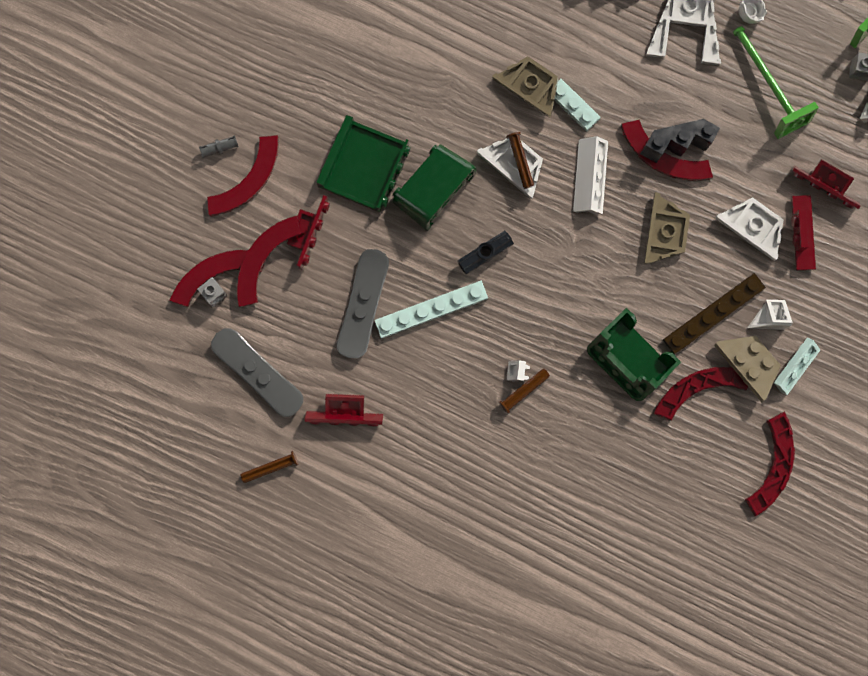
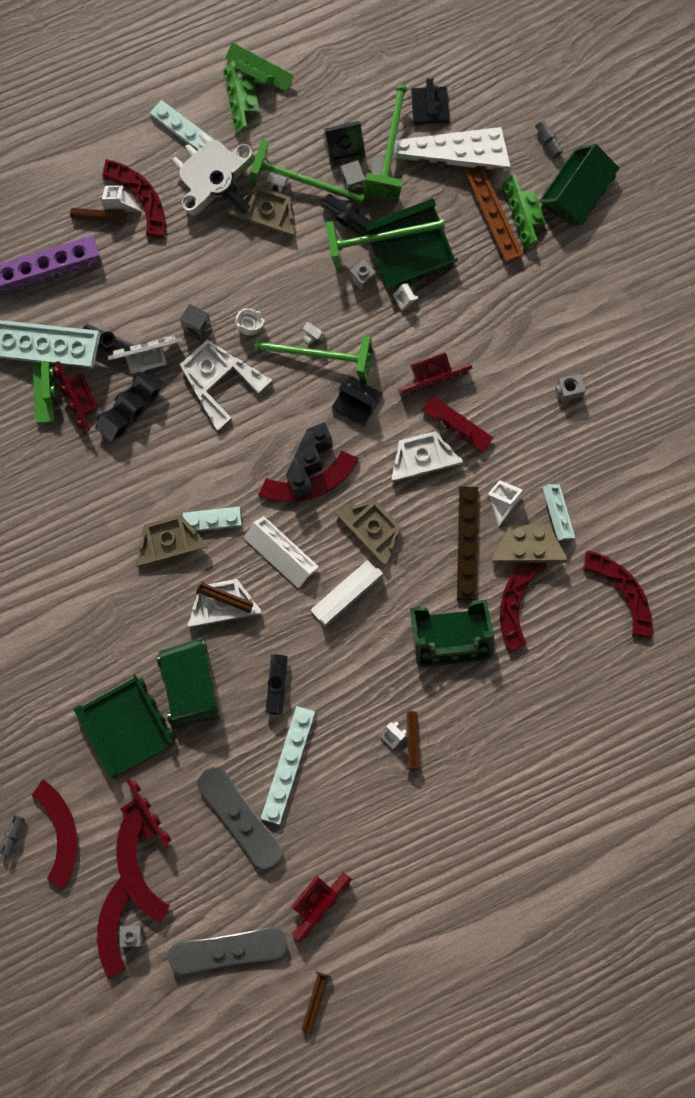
camera: 50 degrees left, 5 degrees down
(599, 251) = (346, 593): none -> white panel
(757, 140) = (356, 400): none -> black bracket
(783, 65) = (313, 333): none -> white tile

